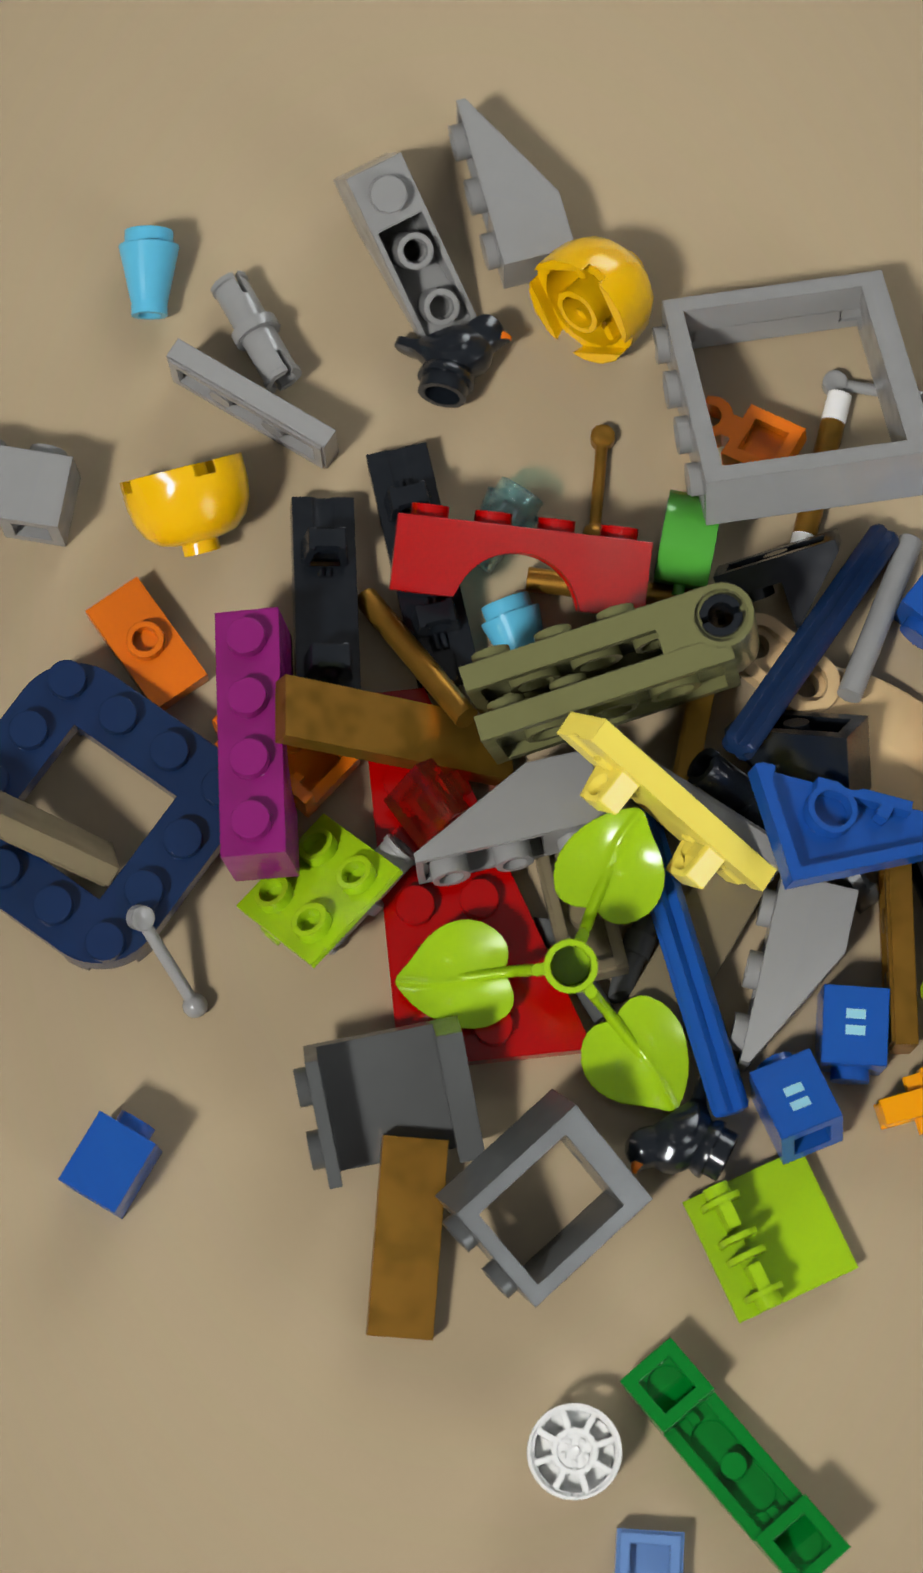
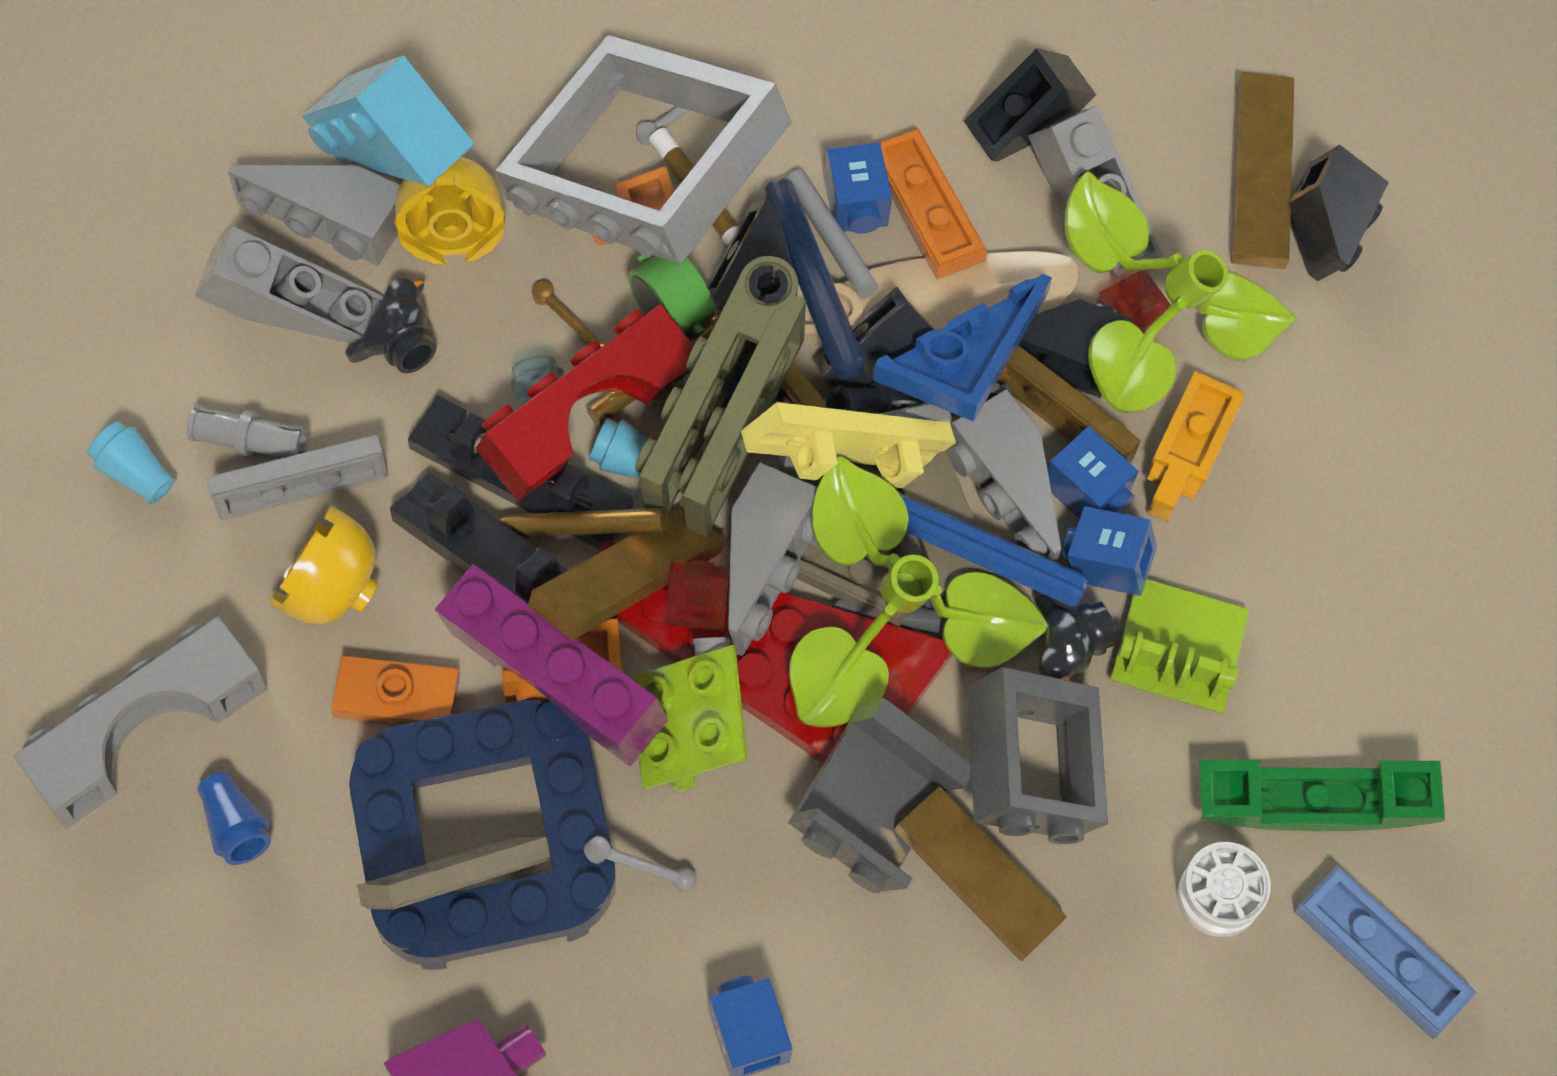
camera: 55 degrees left, 10 degrees down
(610, 171) = (388, 123): none -> medium azure wedge

